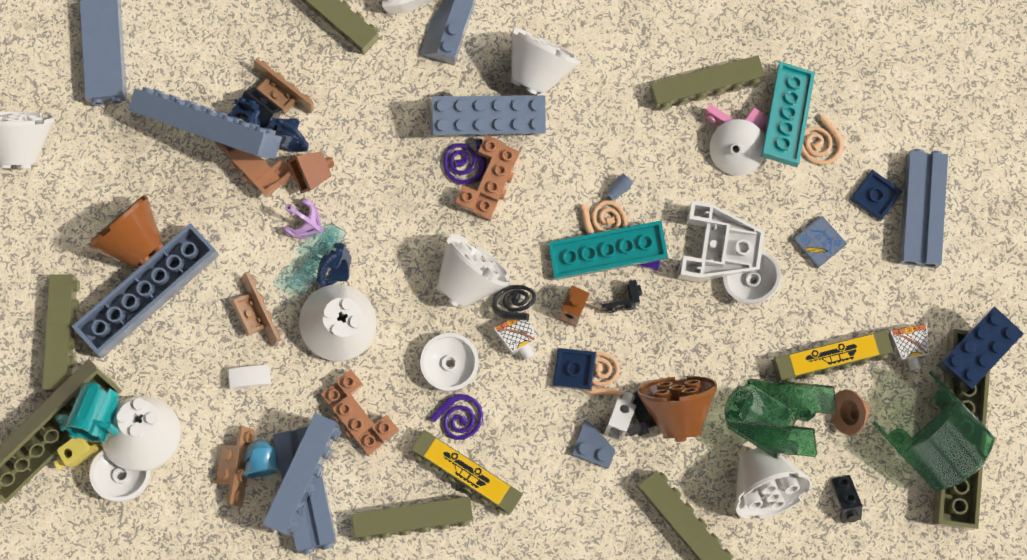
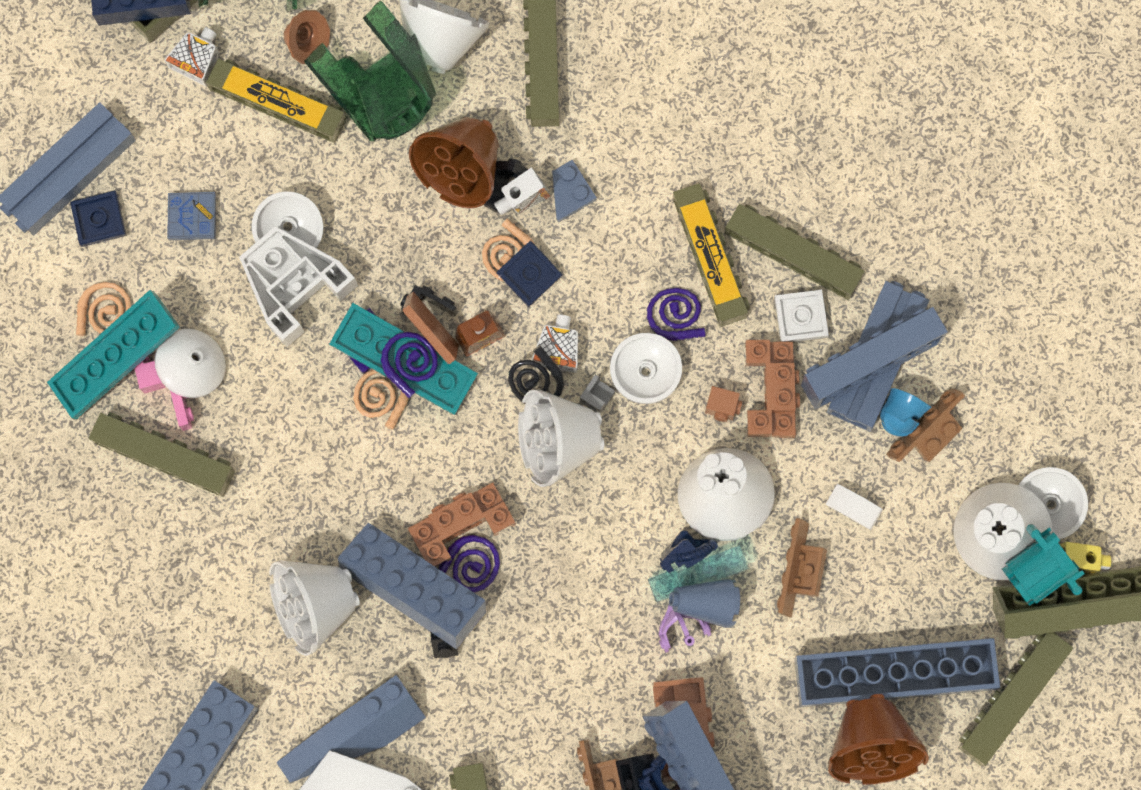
camera: 135 degrees left, 0 degrees up
(290, 134) = (630, 727): dark blue piece -> none
(296, 242) = (709, 602): none -> sand blue cone
(310, 170) = (636, 669): torso -> none
(375, 477) = (801, 316): none -> white plate
(382, 379) = (723, 404): none -> nougat brick
(468, 323) = (596, 395): none -> light grey panel
(602, 253) = (413, 357): none -> dark purple piece
(605, 278) = (430, 328): none -> nougat tile
(619, 186) = (338, 416): sand blue cone -> none

